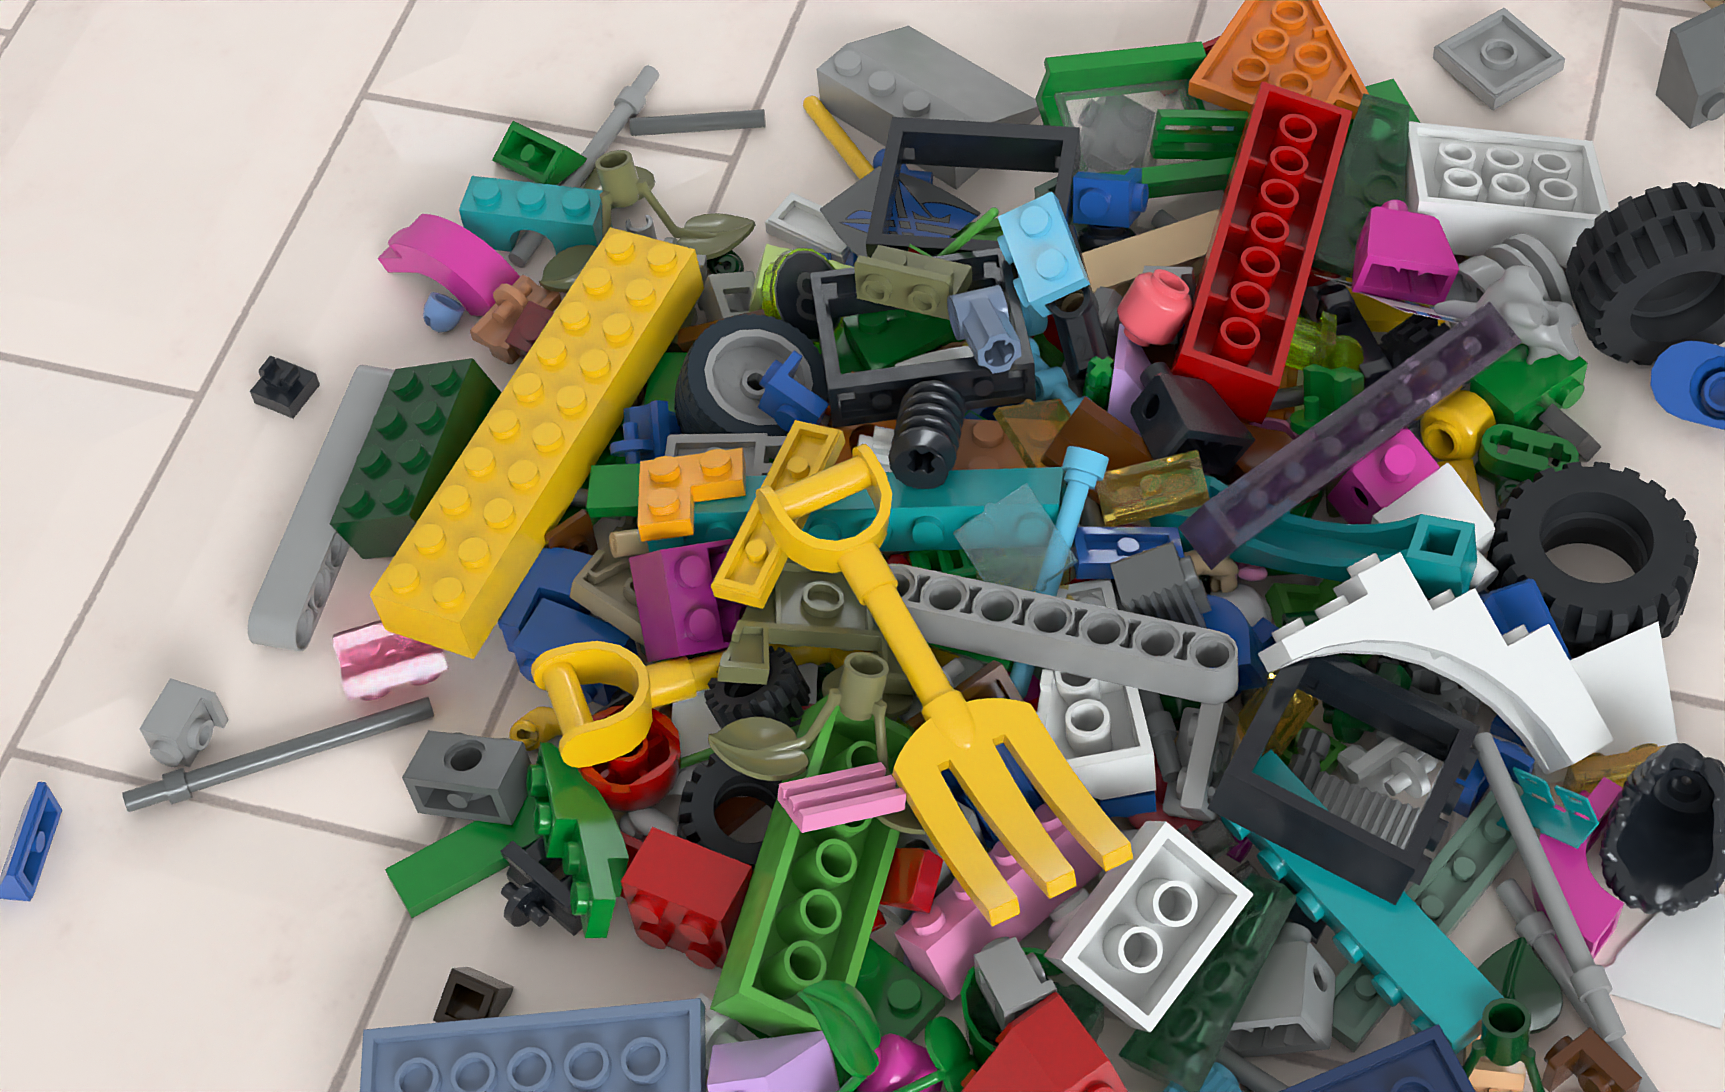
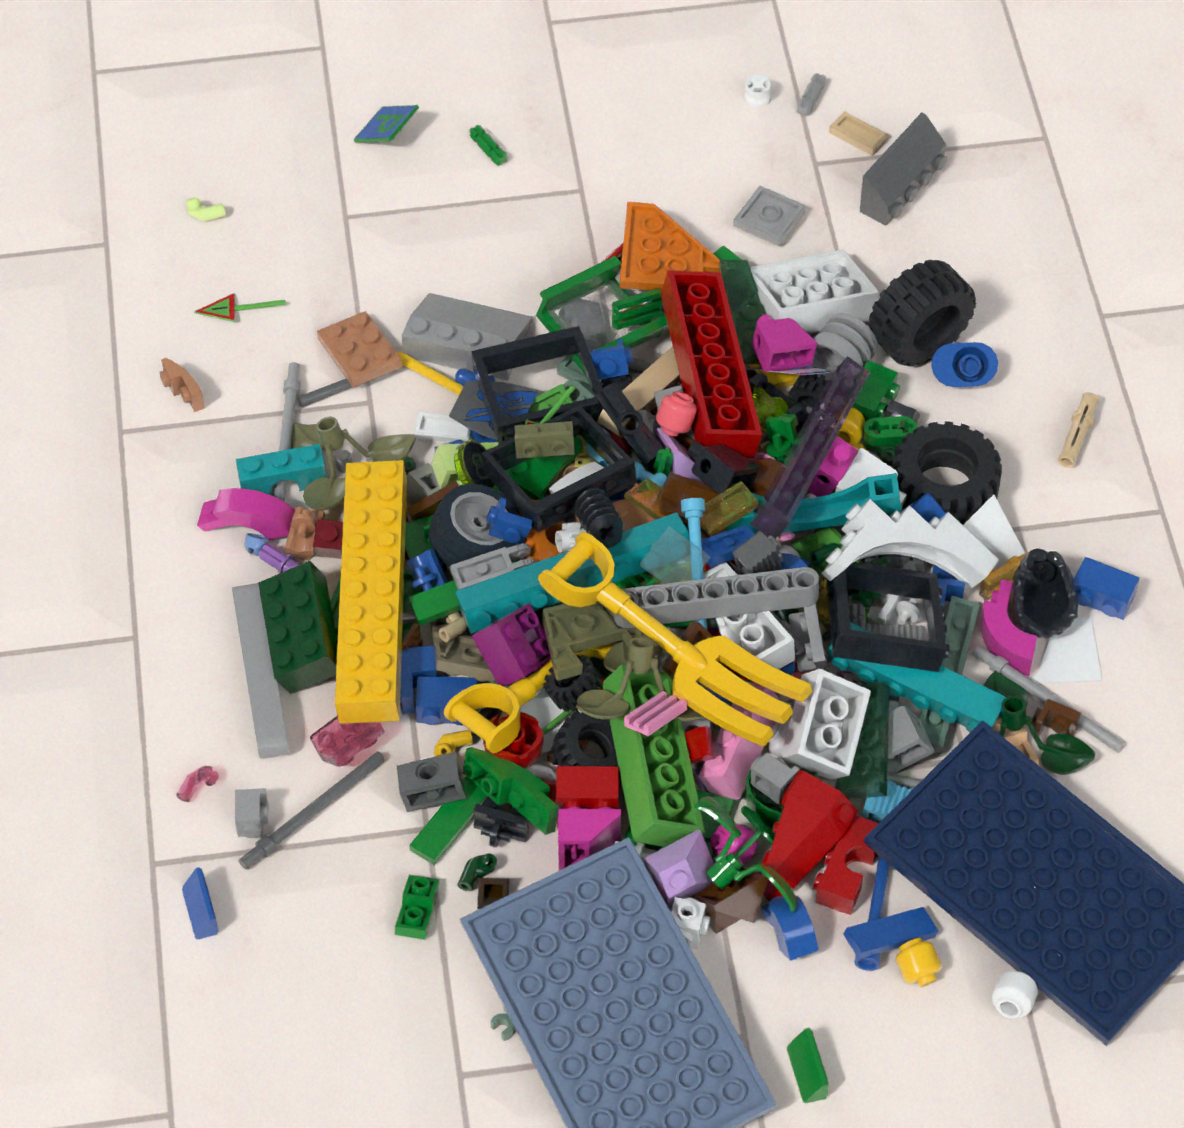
camera: 30 degrees left, 0 degrees up
(139, 641) = (194, 779): none -> clear pink arm
(284, 386) = (187, 615): black tile -> none
(345, 976) = (417, 907): none -> green slope
(458, 346) = (277, 558): none -> medium lavender axle
(464, 949) = (476, 868): none -> dark green arm
(471, 40) = (181, 383): none -> nougat slope
(536, 155) = (257, 436): green slope -> none
(648, 961) = (586, 832): none -> dark pink slope
(674, 483) = (476, 590): light orange plate -> none
(754, 556) = (542, 606): yellow tile -> none
(756, 75) = (359, 349): none -> nougat plate
(984, 323) = (598, 448): sand blue piece -> none
(1042, 251) = (608, 402): medium azure bracket -> none
(1519, 300) = (859, 349): light grey animal -> none
(1552, 822) = (993, 609): teal piece -> none
(1588, 978) = (1038, 676): light grey bar -> none

